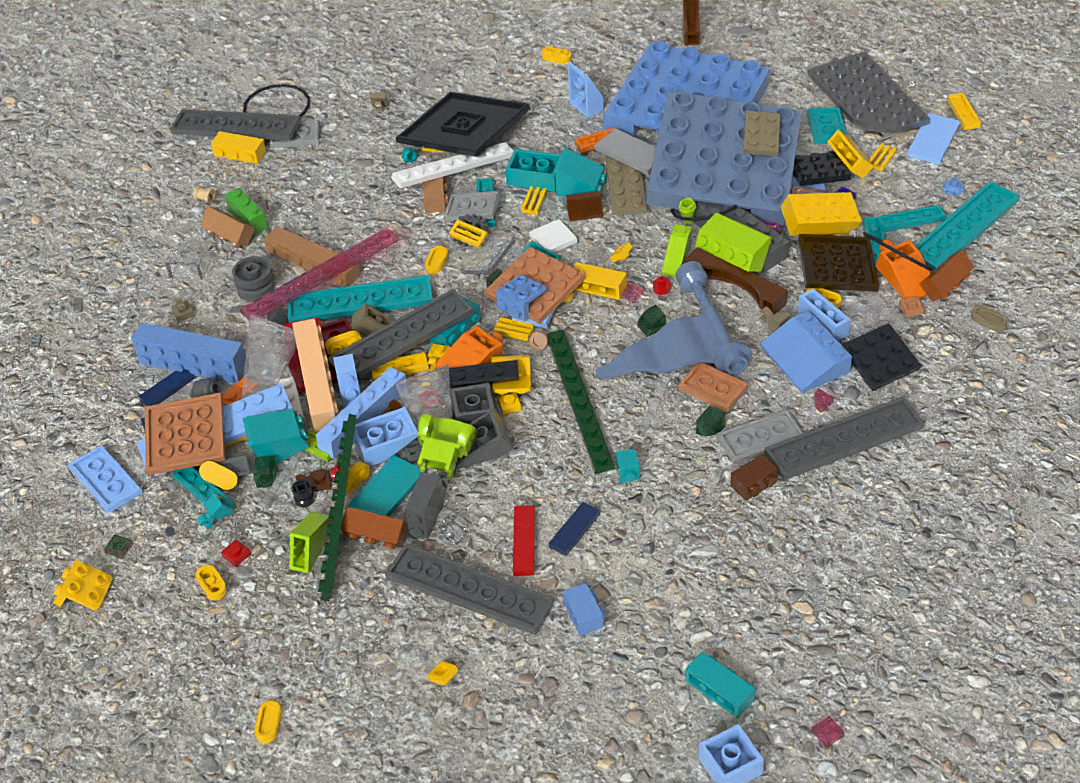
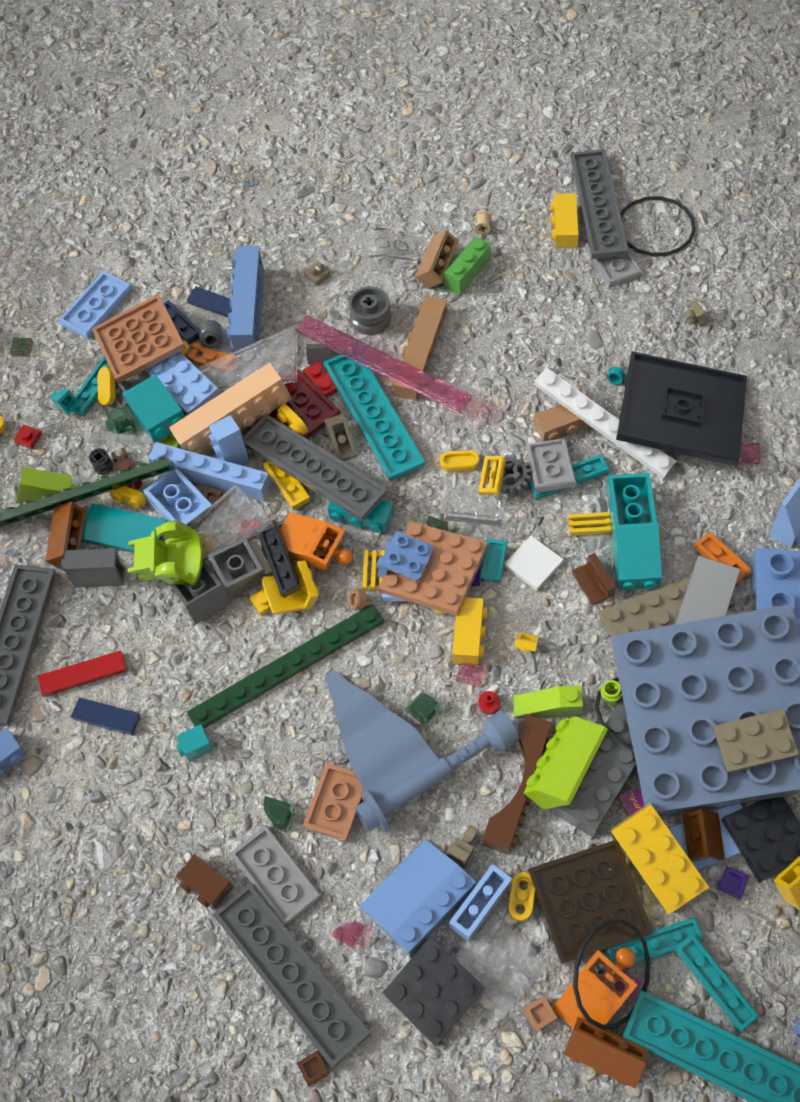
camera: 75 degrees right, 15 degrees up
(435, 353) = (315, 510): yellow plate -> none
(920, 439) = (313, 1068): none -> reddish brown tile

